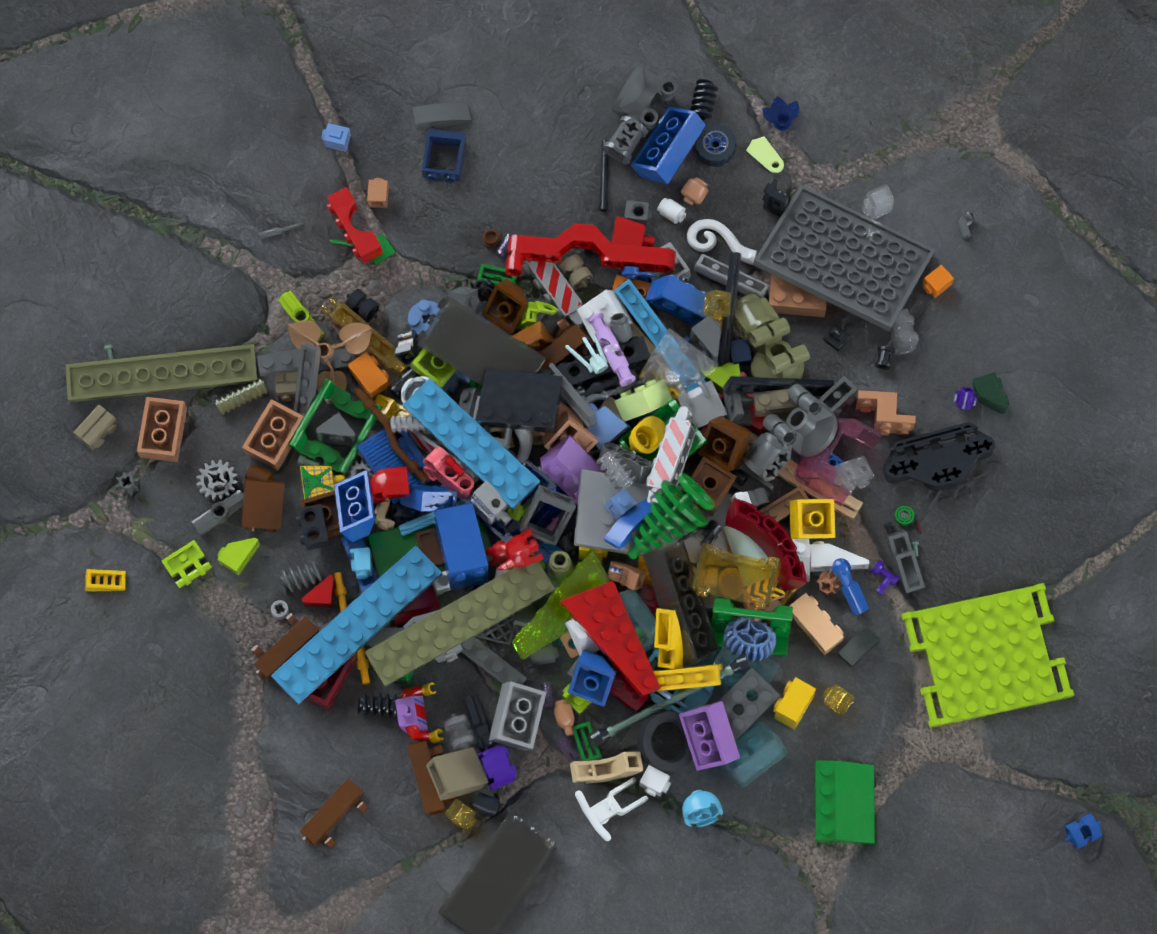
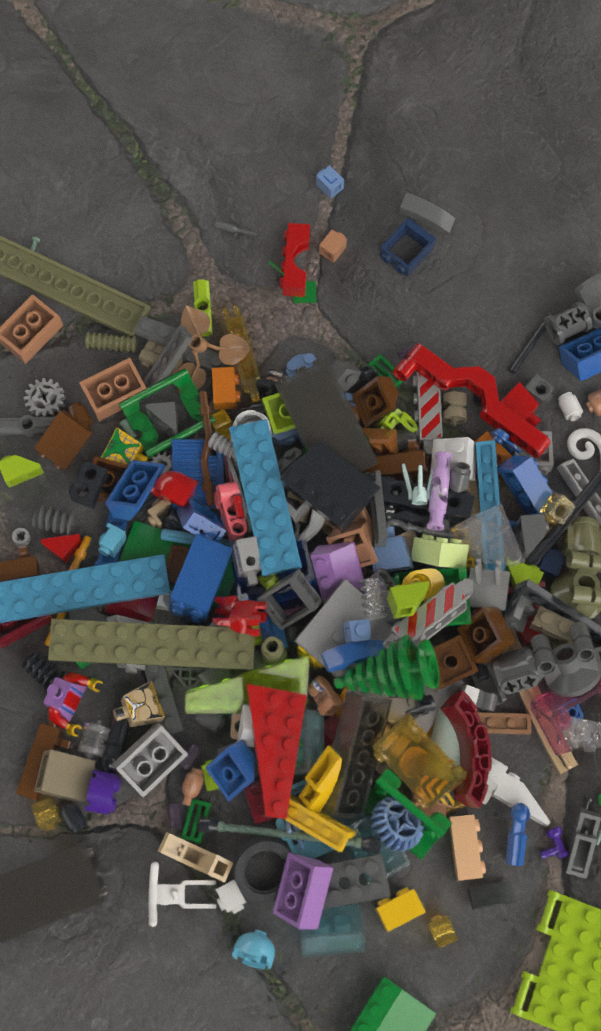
camera: 30 degrees right, 0 degrees up
(362, 306) = (259, 331): black wheel -> none
(481, 680) = (140, 707): none -> tan torso
(491, 238) = (402, 338): reddish brown plate -> none
(643, 453) = (406, 598): none -> lime slope
(812, 519) = (522, 751): yellow brick -> none
(829, 582) = (501, 818): nougat gear -> none

